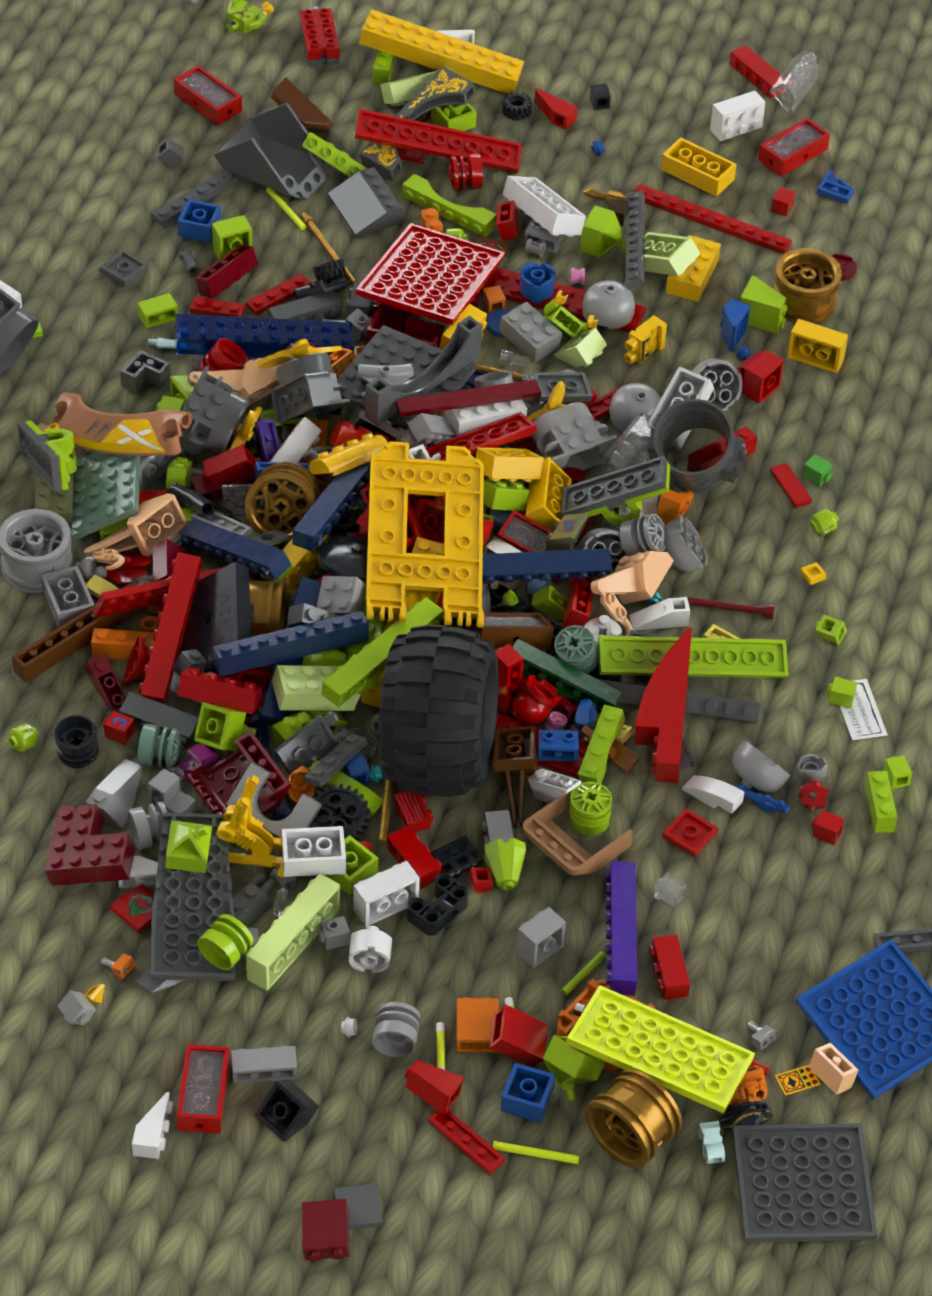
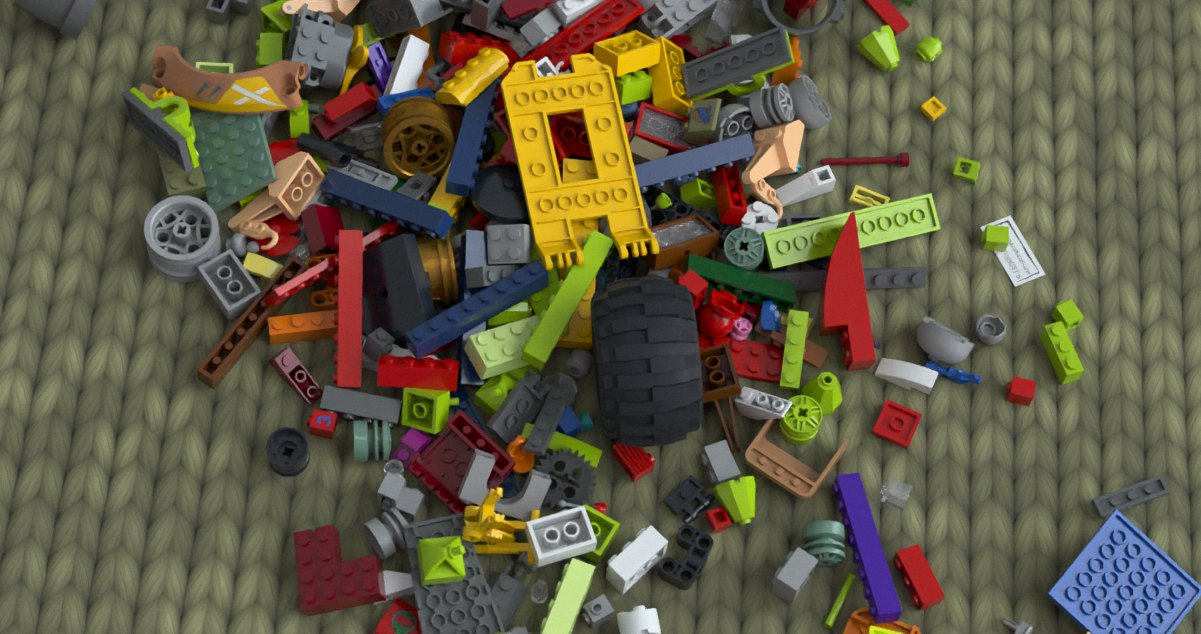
camera: 20 degrees left, 15 degrees up
(23, 737) = (232, 456): lime head -> none
(117, 794) = (343, 500): light grey wedge -> none
(136, 662) = (321, 346): red hat -> none
(385, 812) = (605, 448): pearl gold bar -> none
(406, 846) = (648, 508): red brick -> none
(558, 745) = (752, 357): blue brick -> none
(582, 914) = (825, 542): none -> sand green wheel
(624, 789) = (825, 390): none -> lime cone
(773, 511) = (880, 48): none -> lime cone
(821, 792) = (1000, 359): red brick -> none

